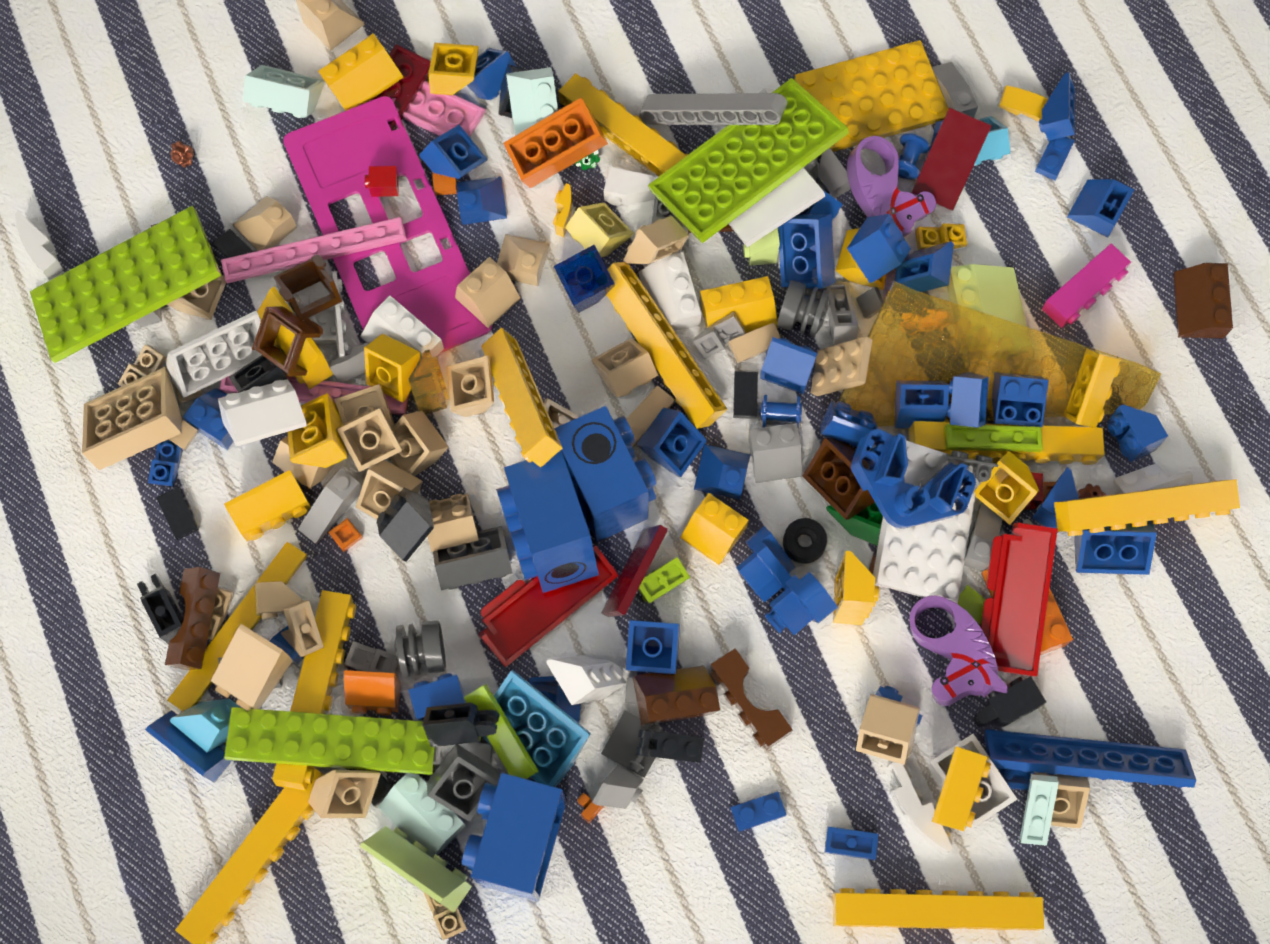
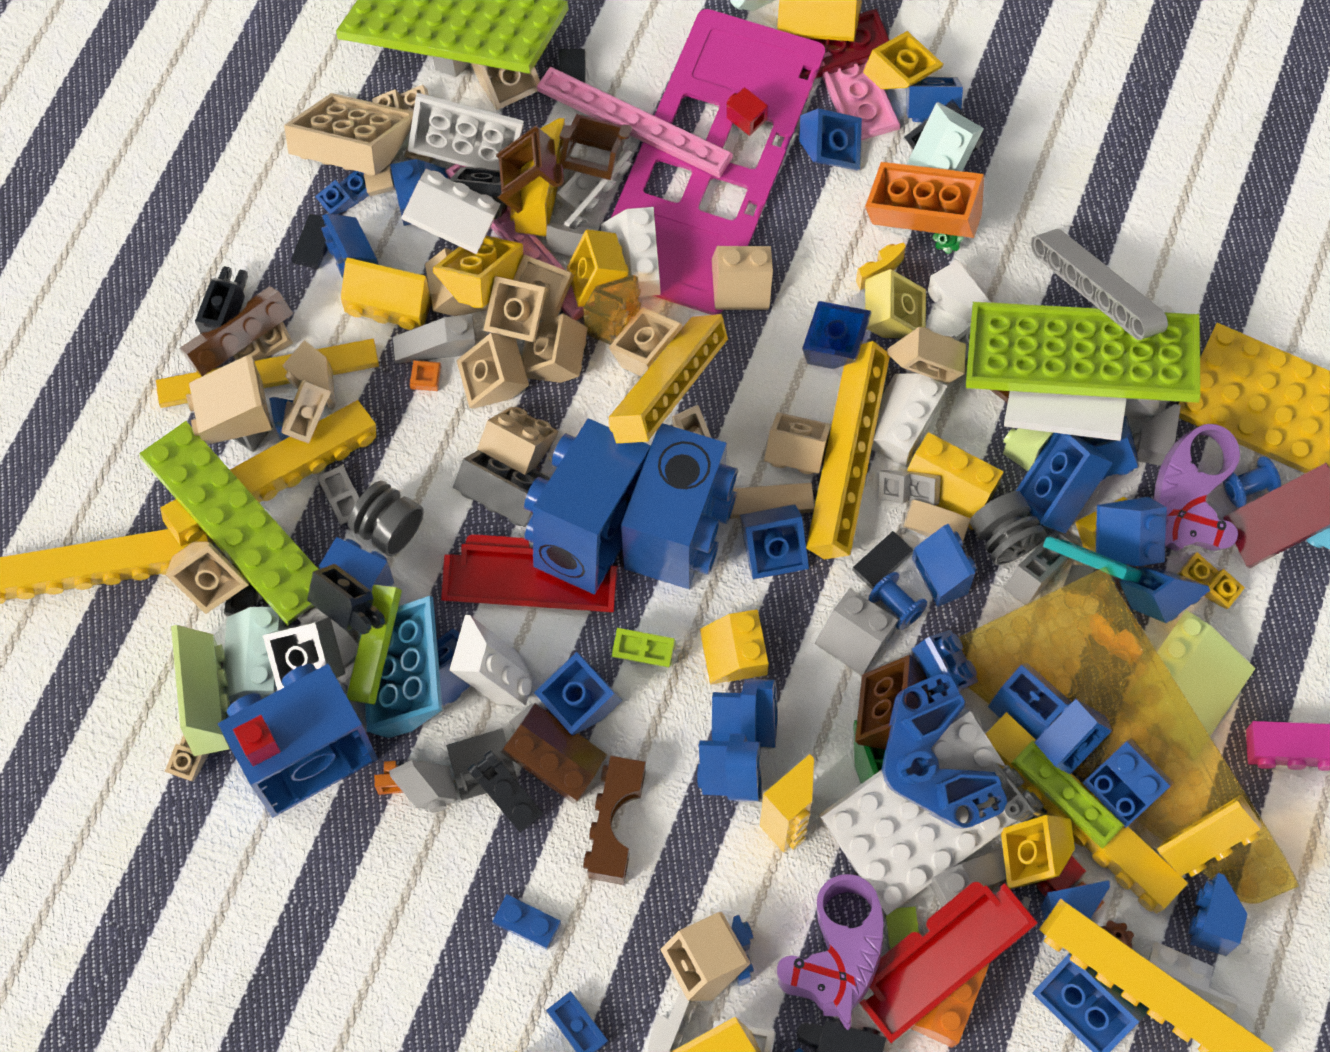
camera: 45 degrees right, 5 degrees down
(206, 722) = (156, 417): medium azure slope -> none
(207, 764) = (132, 426): blue slope -> none
(208, 495) = (346, 240): none -> blue slope
(265, 224) = (617, 70): tan slope -> none
(371, 692) = (312, 517): orange slope -> none
(405, 523) = (476, 402): slope -> none
(444, 185) = (799, 160): orange tile -> none
(481, 200) = (817, 198): blue slope -> none
(511, 862) = (256, 740): none -> red brick
(523, 259) = (804, 278): tan slope -> none
(623, 128) = (1004, 233): yellow brick -> none
(634, 571) = (626, 617): dark red tile -> none
(722, 472) = (794, 607): blue slope -> none
(807, 527) = (805, 714): black tyre -> none
(841, 366) = (989, 606): tan plate -> none
(874, 283) = (1092, 559): none -> teal tile

